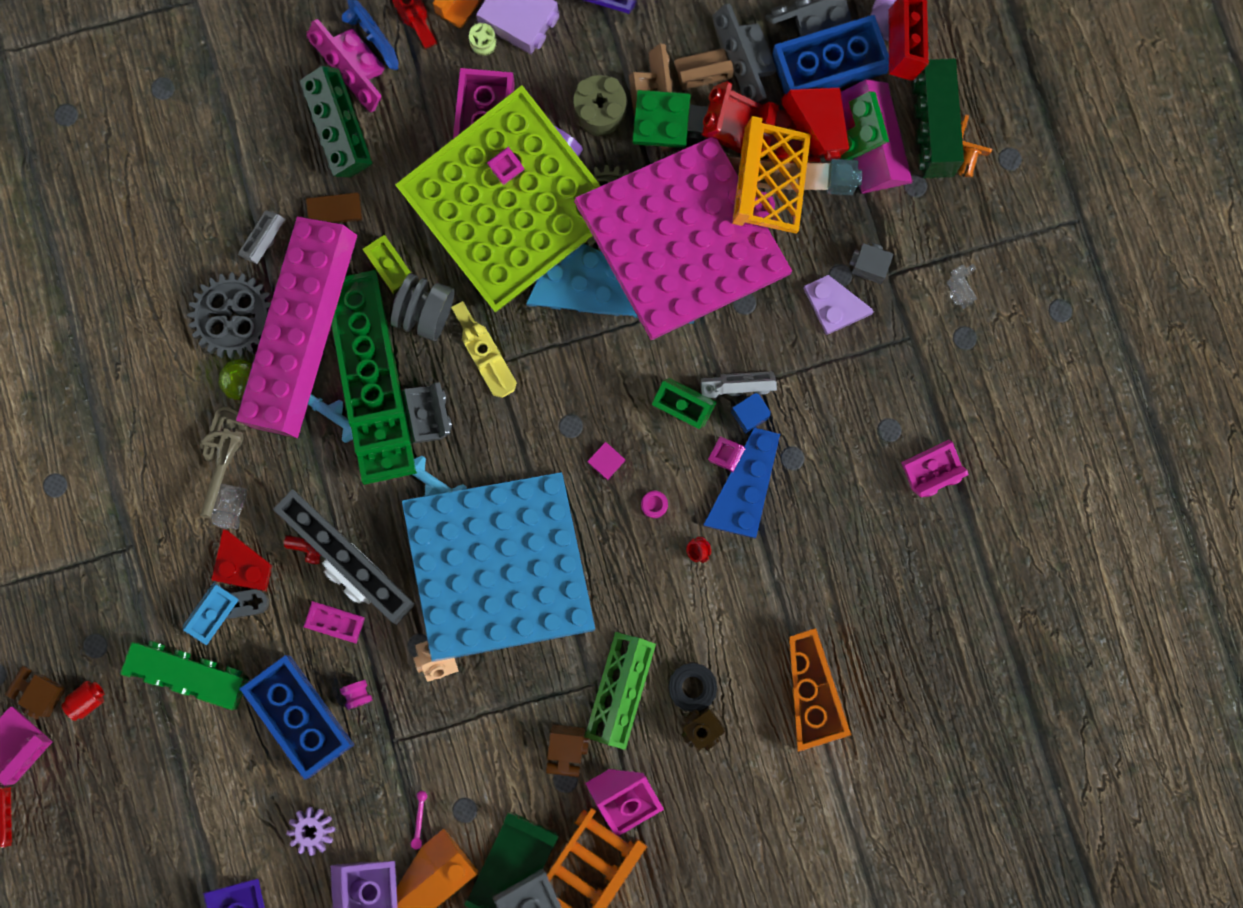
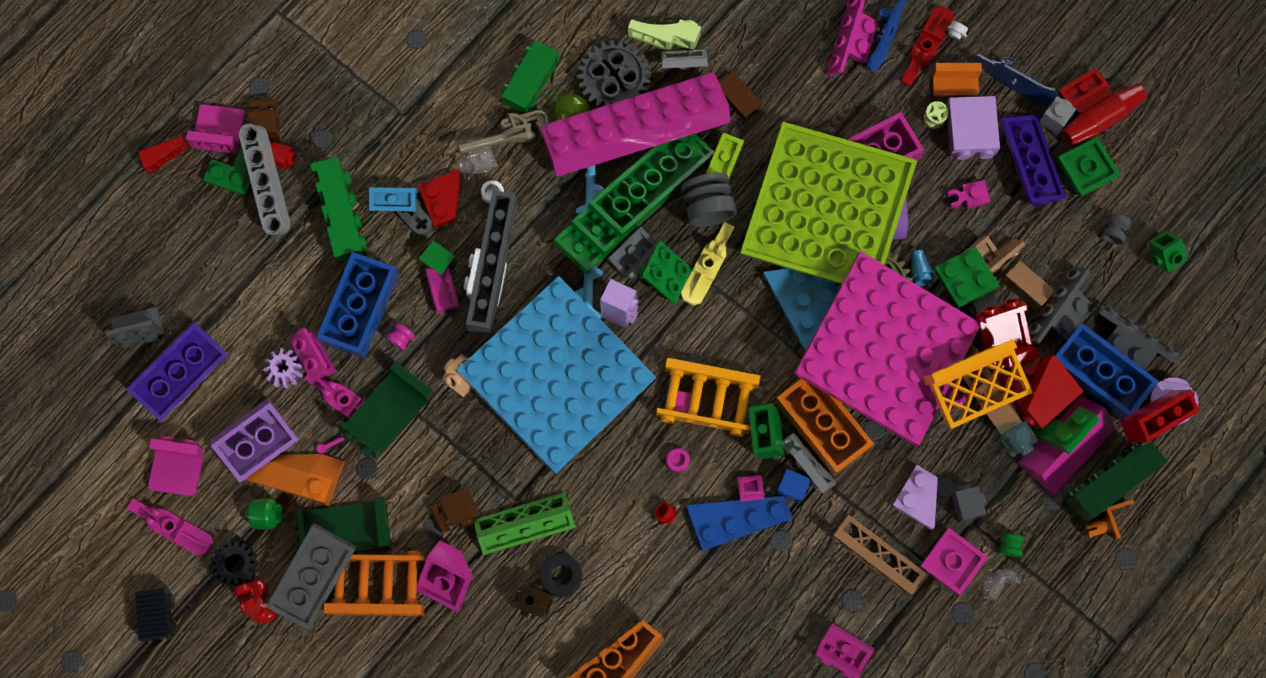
camera: 60 degrees right, 5 degrees down
(78, 758) = (230, 178): none -> green plate
(87, 731) = (272, 187): none -> light grey beam
(176, 398) = (529, 77): none -> green brick
(234, 222) = (664, 36): none -> yellowish green slope
(265, 512) = (487, 189): none -> white tile
(301, 544) = (480, 224): red arm -> none
(302, 608) = (437, 258): none -> green panel
(316, 794) = (312, 354): none -> dark pink bracket
(335, 122) = (801, 54): dark green brick -> none
(399, 785) = (334, 392): none -> dark pink piece
(423, 756) = (386, 412): none -> dark green panel
(466, 396) = (665, 272): none -> green hinge
(471, 459) = (619, 304): none -> lavender brick
(505, 166) = (850, 188): dark pink tile -> none
(582, 59) = (972, 194): none -> dark pink plate
(599, 90) = (951, 239): olive brick -> none
(606, 410) = (723, 379): none -> light orange fence
(622, 155) = (920, 269): none -> dark azure cone
(714, 345) = (824, 425): none -> orange brick
(871, 384) = (877, 563): none -> medium nougat fence
(915, 313) = (953, 562): none -> dark pink plate
(934, 251) = (1011, 545): none -> green wheel

